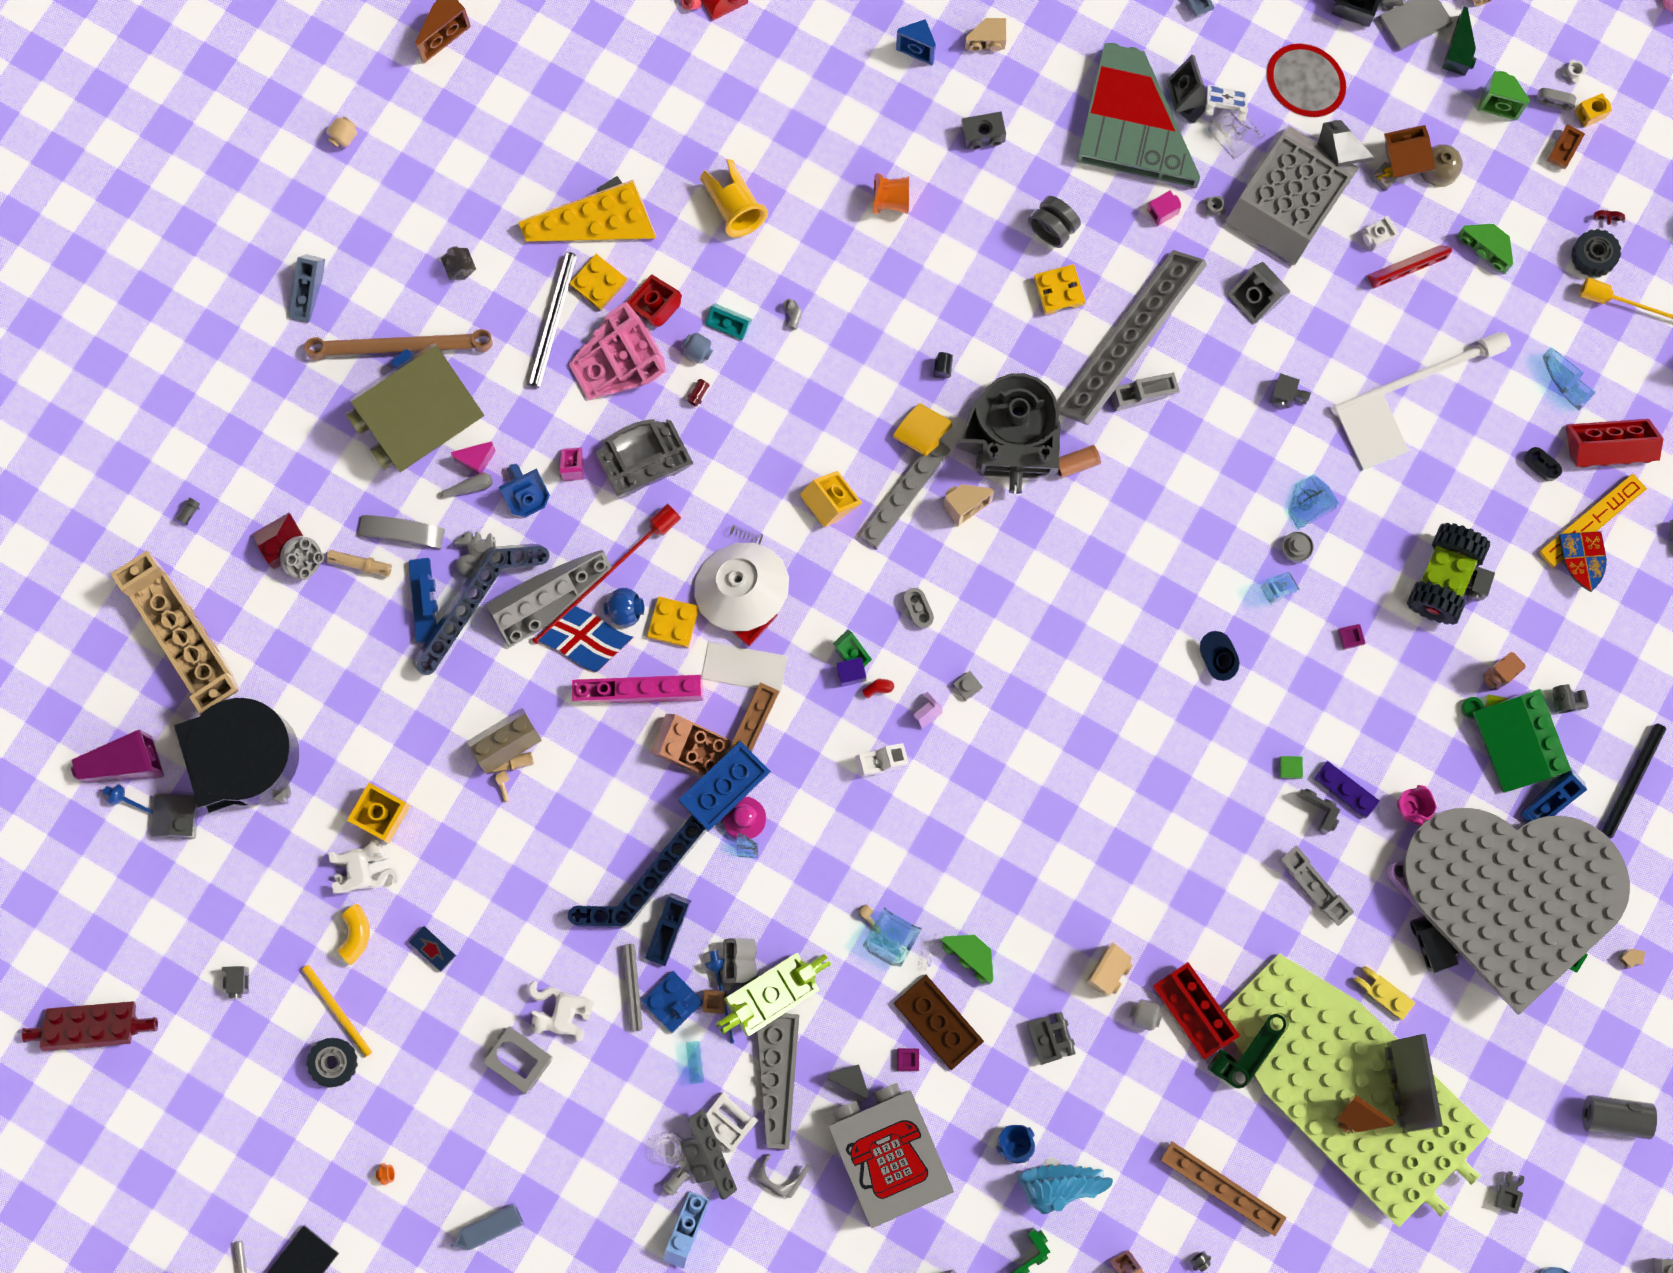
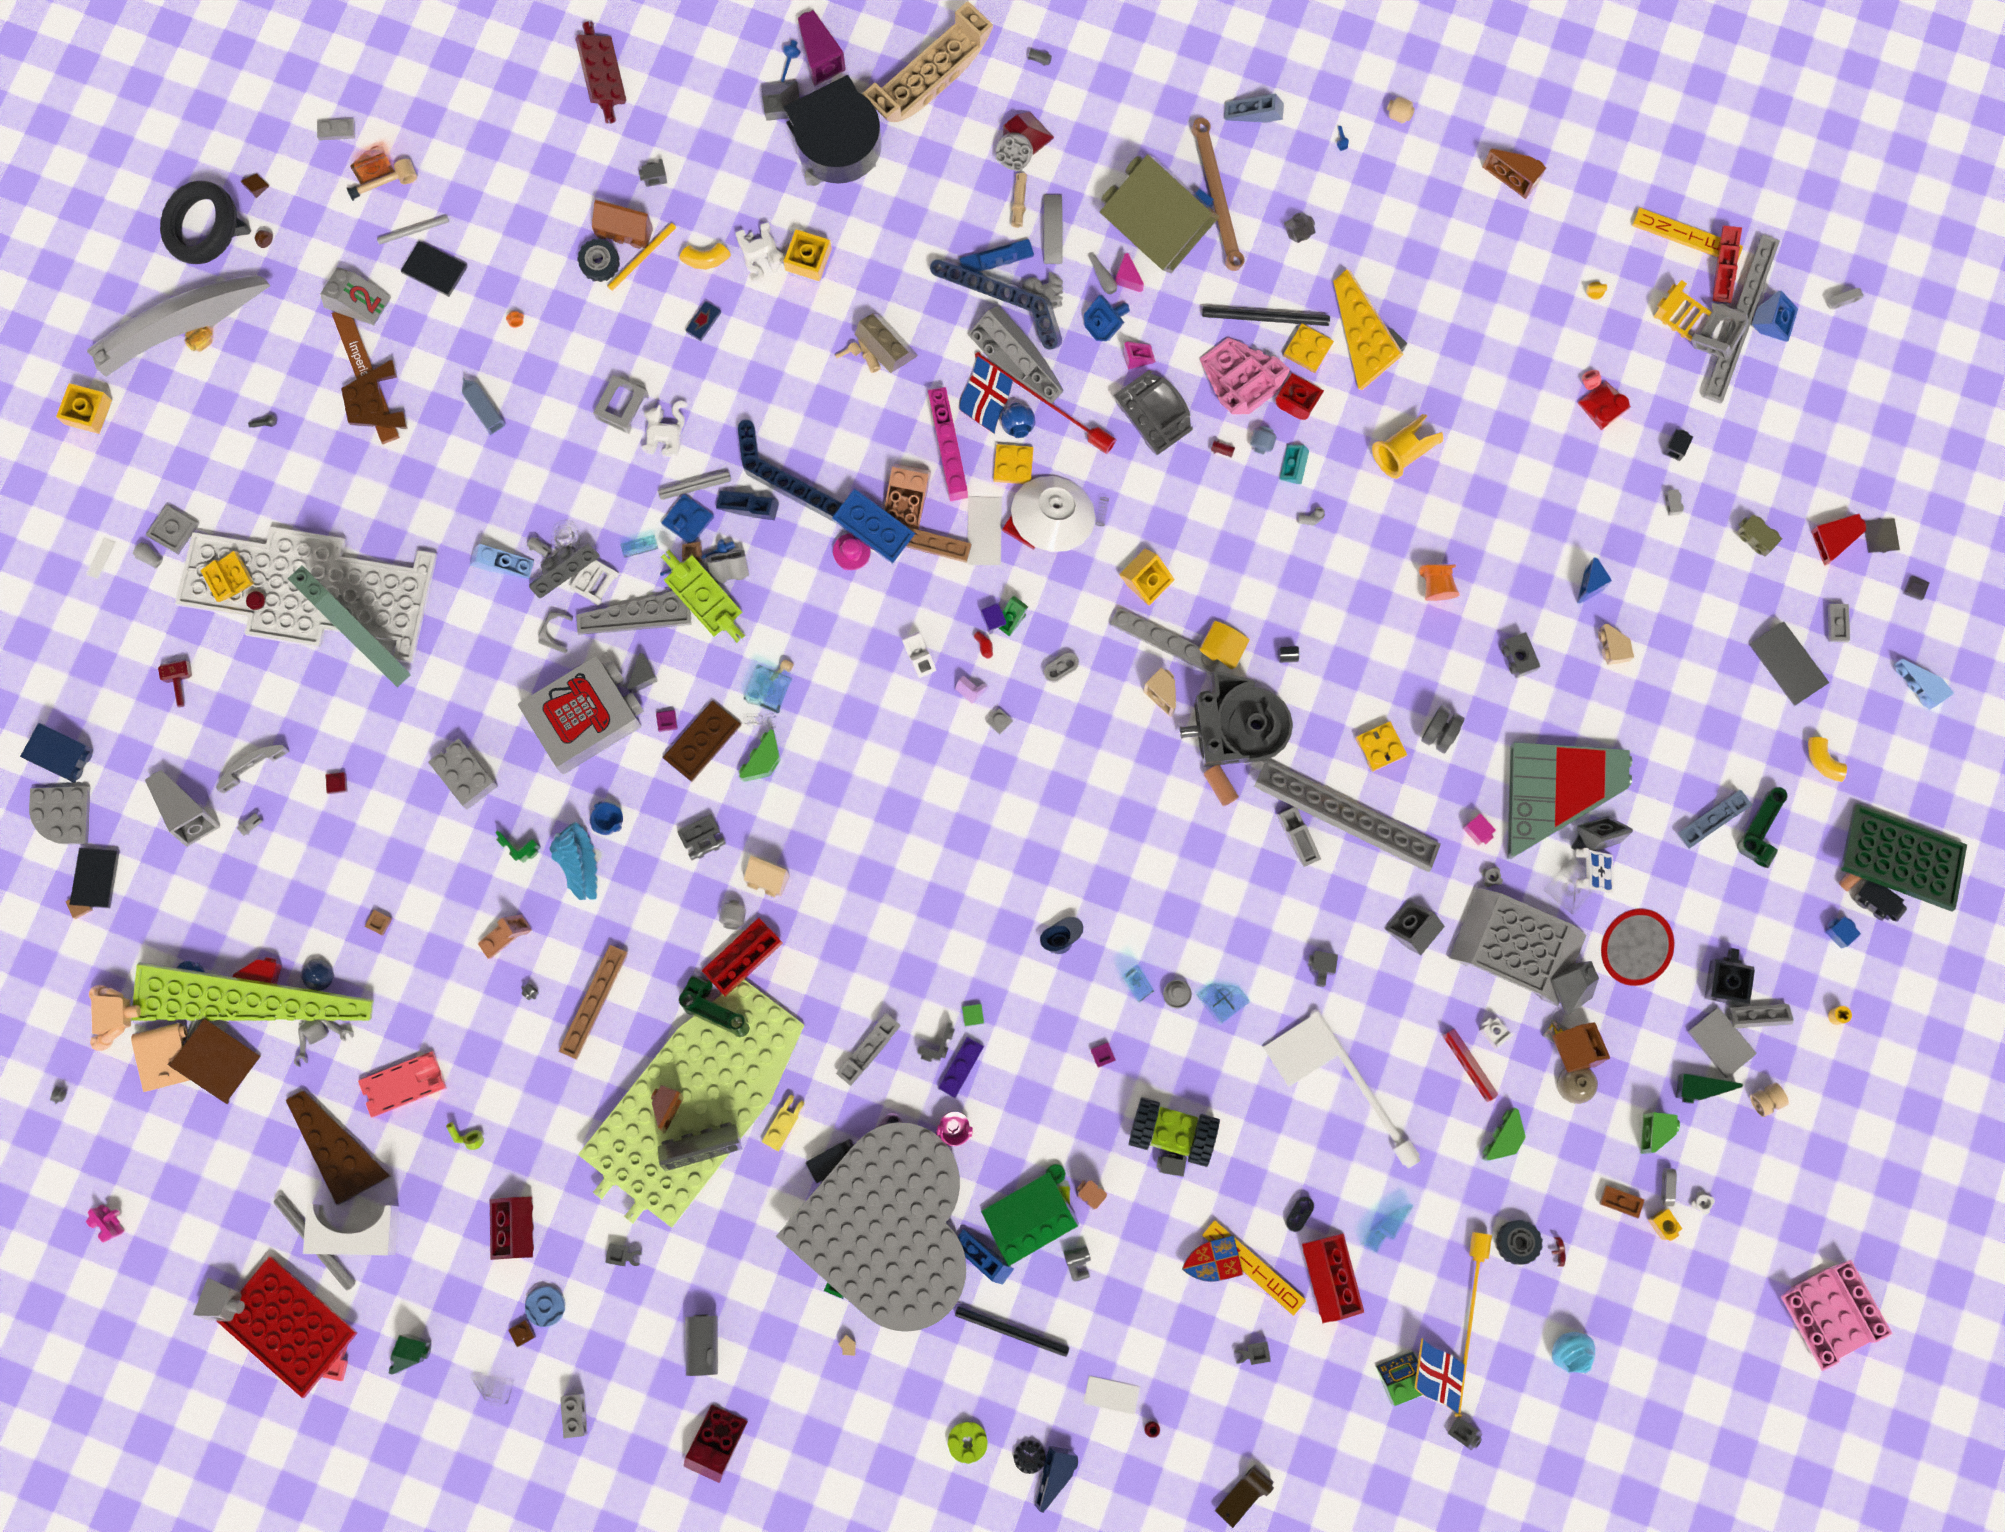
camera: 80 degrees right, 0 degrees up
(295, 1027) = (621, 224): none -> slope
(365, 199) = (1343, 143): none -> blue hand
(746, 847) = (826, 556): clear light blue slope -> none

